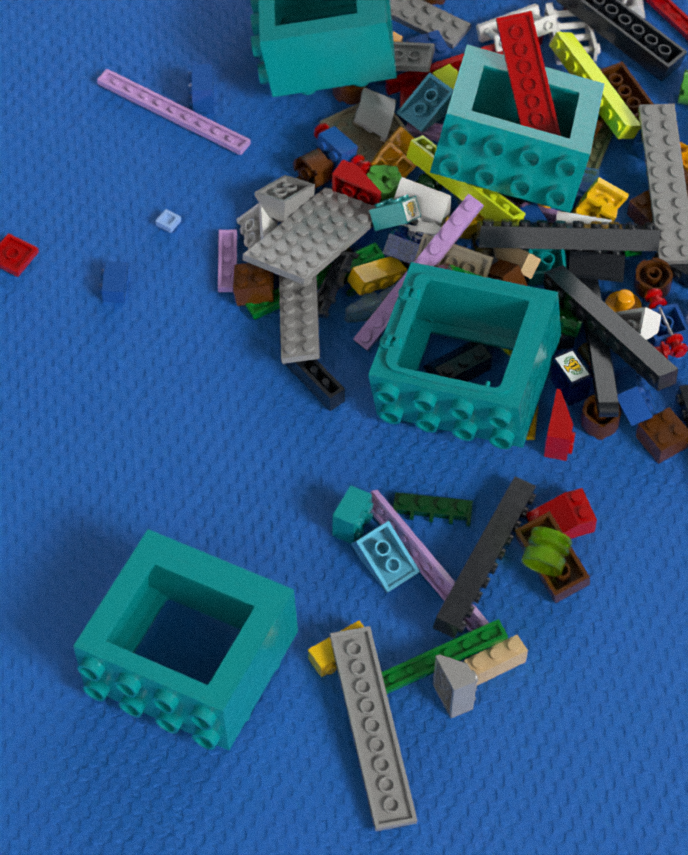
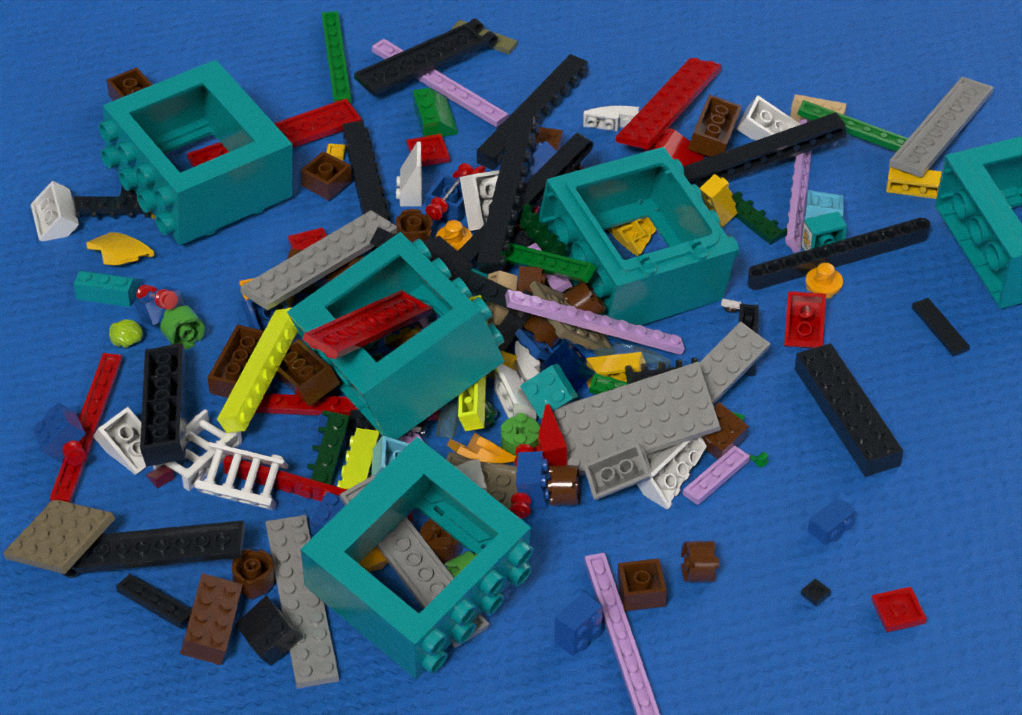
camera: 135 degrees left, 10 degrees down
(79, 227) = (815, 592): none -> black plate
(168, 220) = (731, 542): light blue plate -> none
(171, 182) = (699, 561): none -> reddish brown brick
(186, 377) = (848, 410): none -> black brick
(187, 515) = (940, 327): none -> black tile
(192, 143) = (641, 584): none -> reddish brown brick
(210, 296) = (760, 460): none -> green hand
(292, 433) = (805, 319): none -> red slope
(315, 486) = (824, 280): none -> light orange plate
(324, 526) = (838, 253): none -> black beam
(360, 404) = (730, 305): none -> plate
(455, 685) = (867, 97): light grey slope -> none
(460, 468) = (719, 198): none -> yellow brick
(523, 610) = (763, 120): none -> white slope
(546, 551) = (728, 105): clear neon green wheel -> none
(617, 555) = (668, 103): none -> red plate
(647, 515) = (609, 117): none -> white slope

